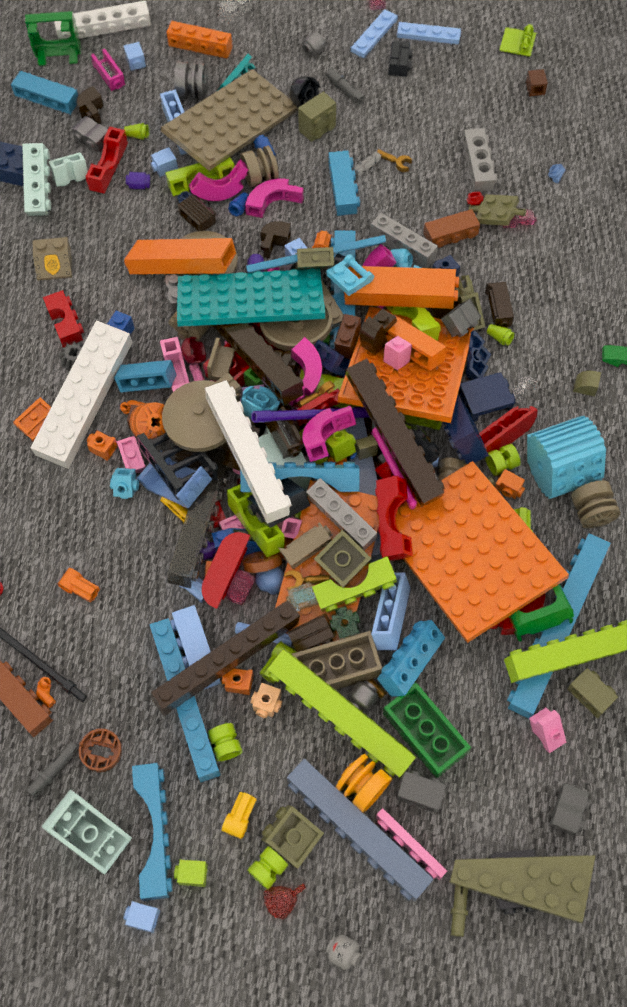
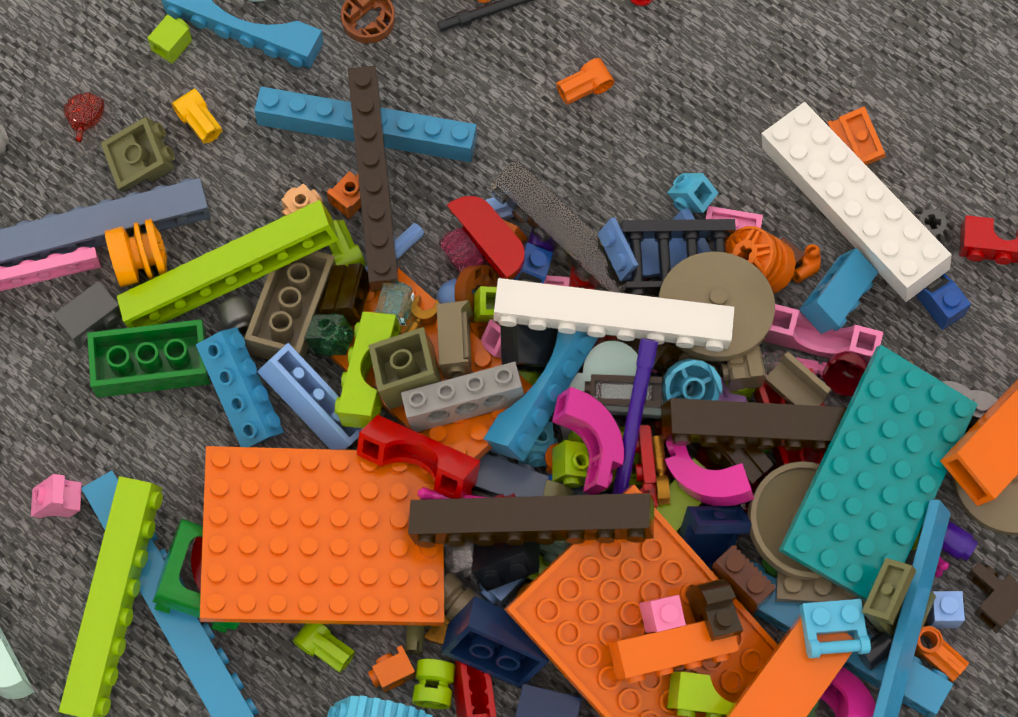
camera: 120 degrees right, 5 degrees up
(105, 448) = (768, 204): orange brick -> none
(191, 636) = (431, 169): light blue brick -> none
(226, 744) = (286, 140): lime wheel -> none
(268, 867) = (120, 108): lime wheel -> none
(592, 692) = (60, 583): olive brick -> none

